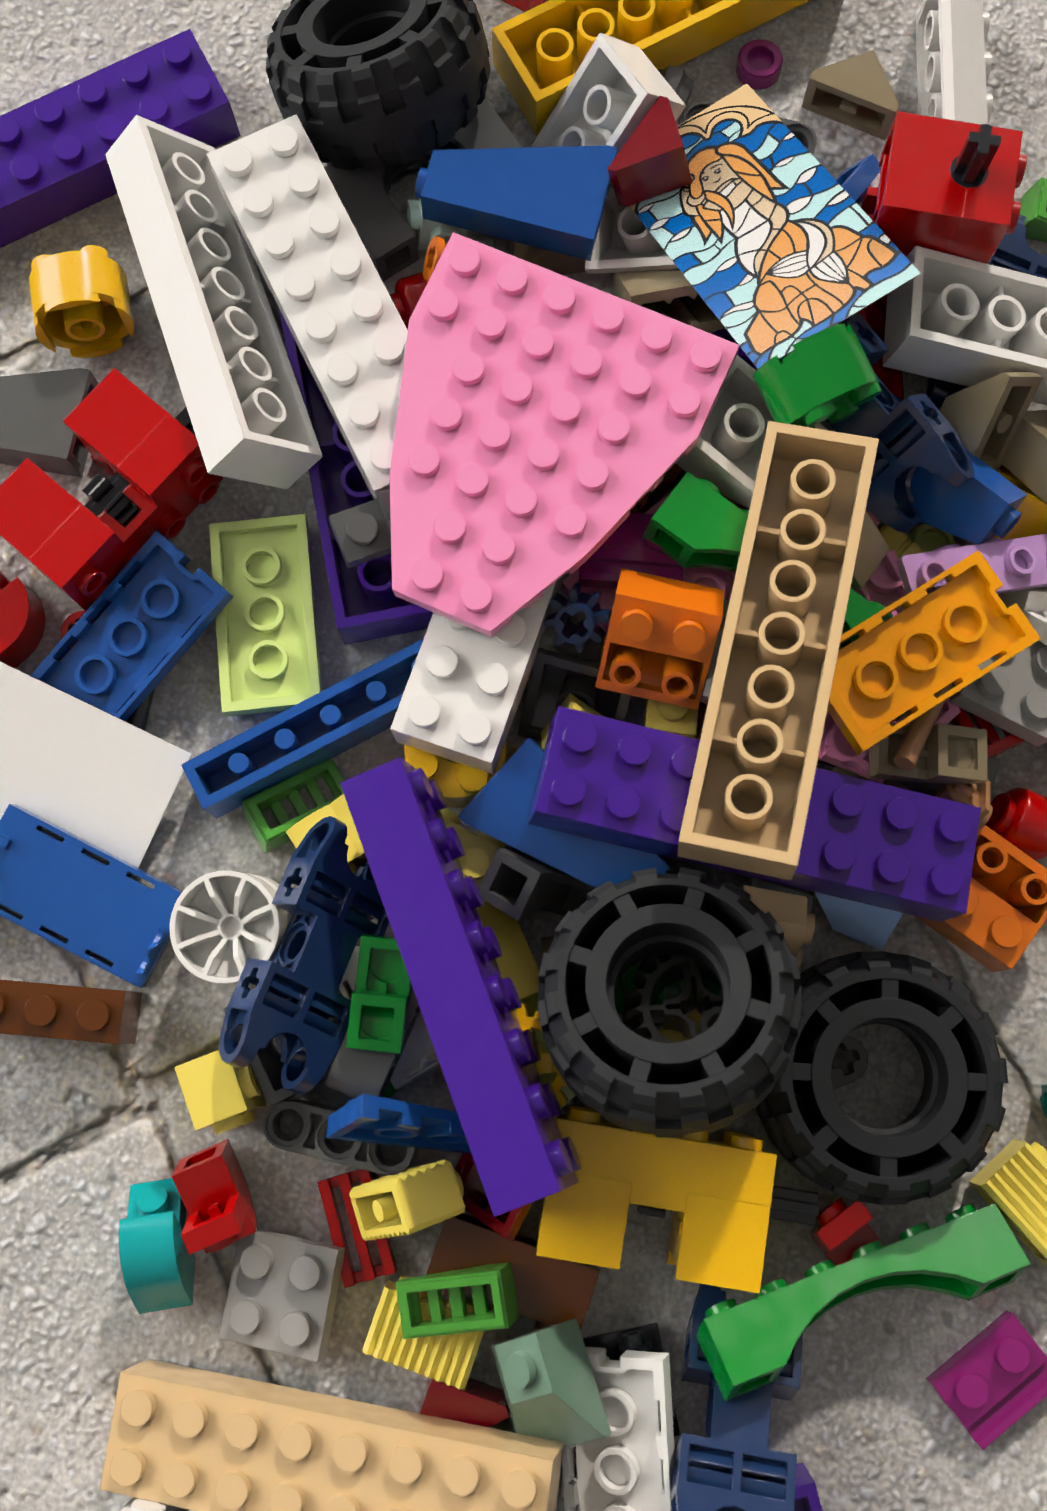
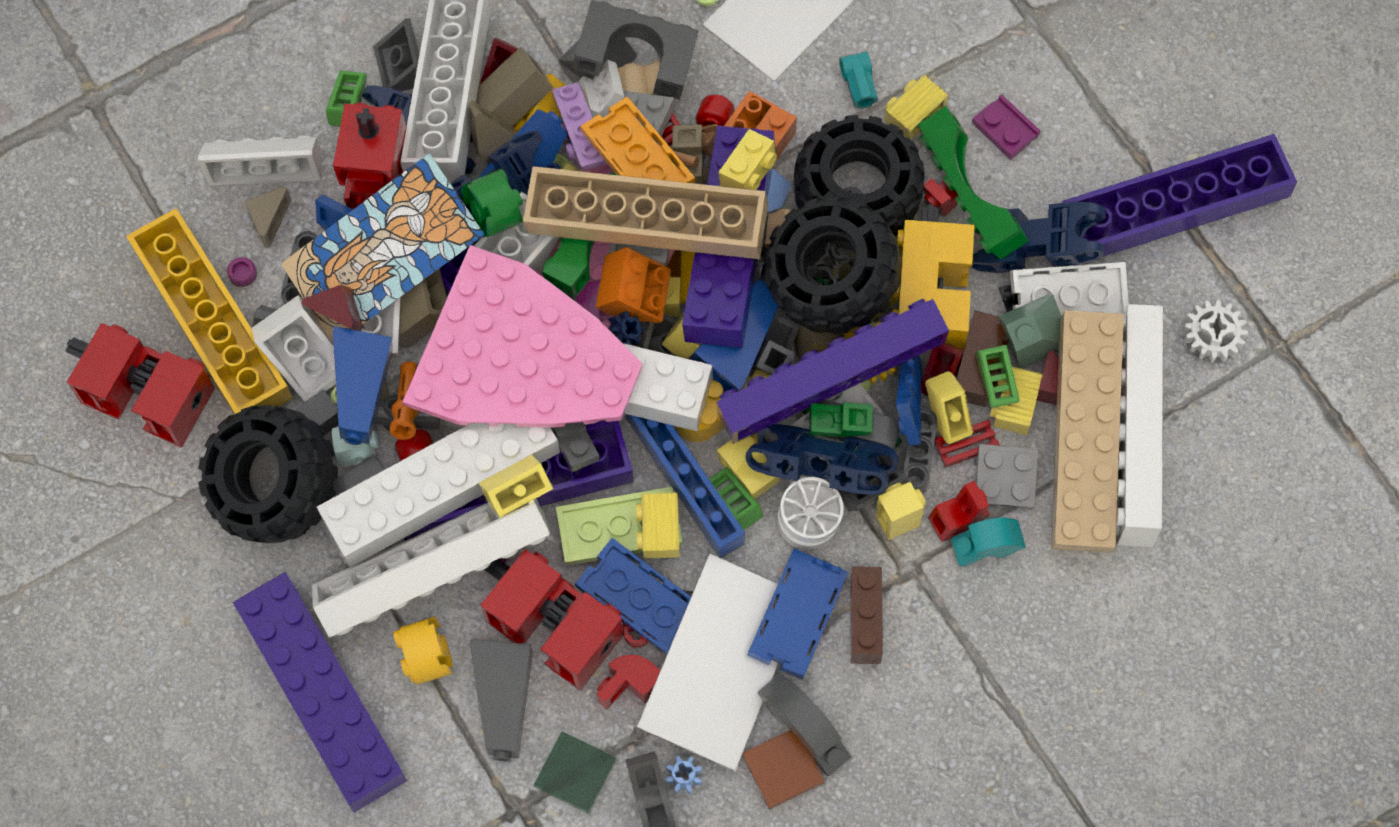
camera: 95 degrees left, 10 degrees down
(239, 670) = (659, 525): none -> light yellow brick
(292, 415) = (515, 485): none -> light yellow brick
(878, 848) = (748, 162): none -> light yellow brick

